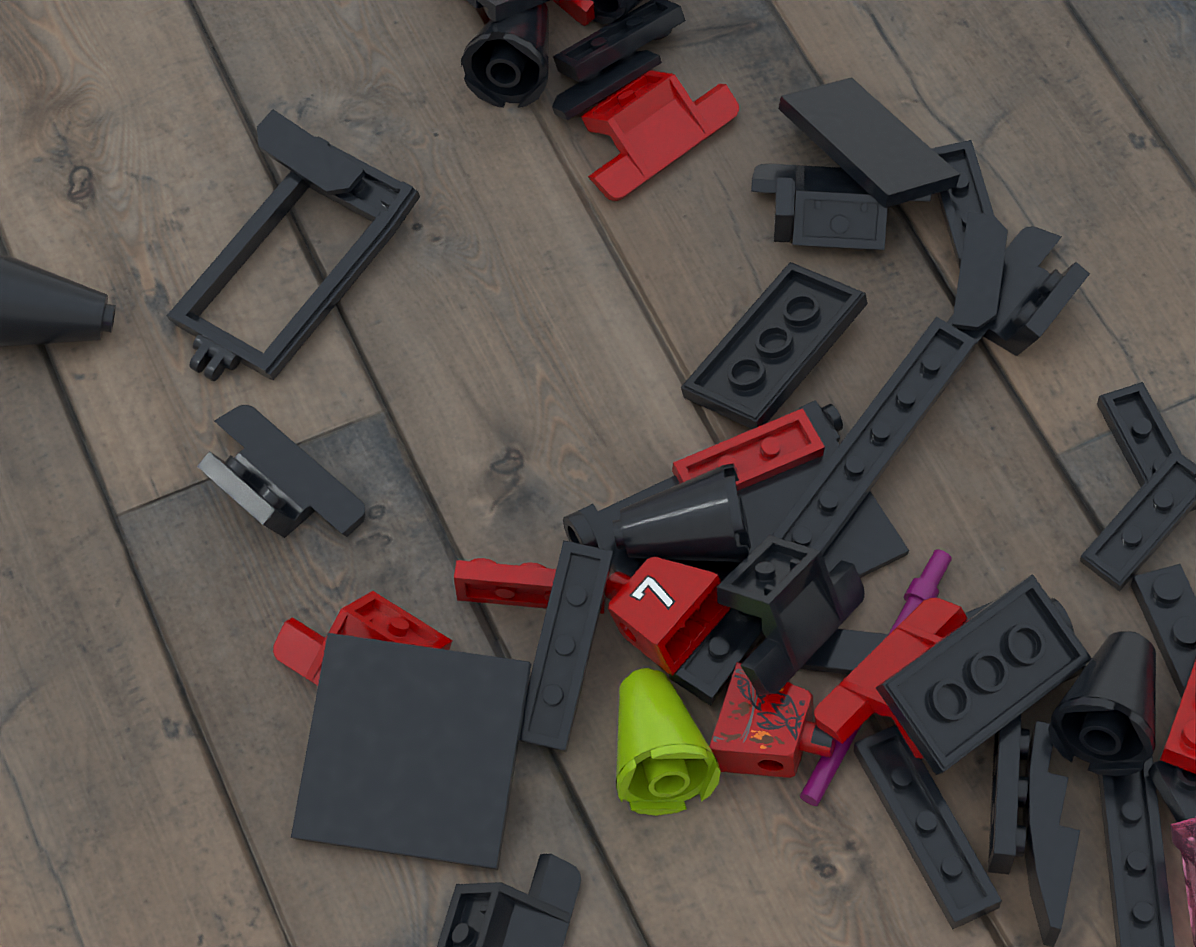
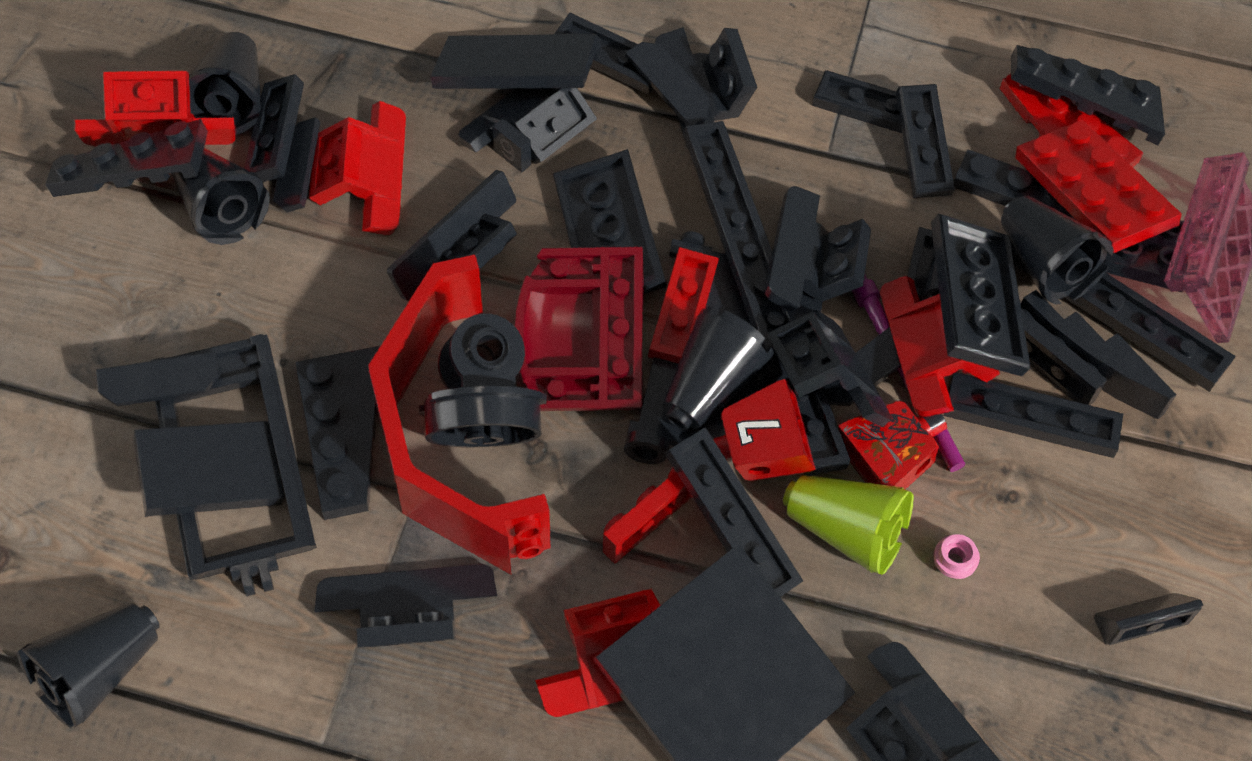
camera: 55 degrees left, 0 degrees up
(262, 248) = (207, 468): none -> black tile
(395, 307) = (340, 428): none -> black wing
(449, 303) = (493, 532): none -> red panel
(491, 372) = (481, 392): none -> black piece
(646, 401) = (584, 328): none -> dark red slope
(648, 247) = (466, 230): none -> black bracket
(710, 846) = (961, 546): none -> bright pink plate
(906, 513) = (811, 257): none -> black plate

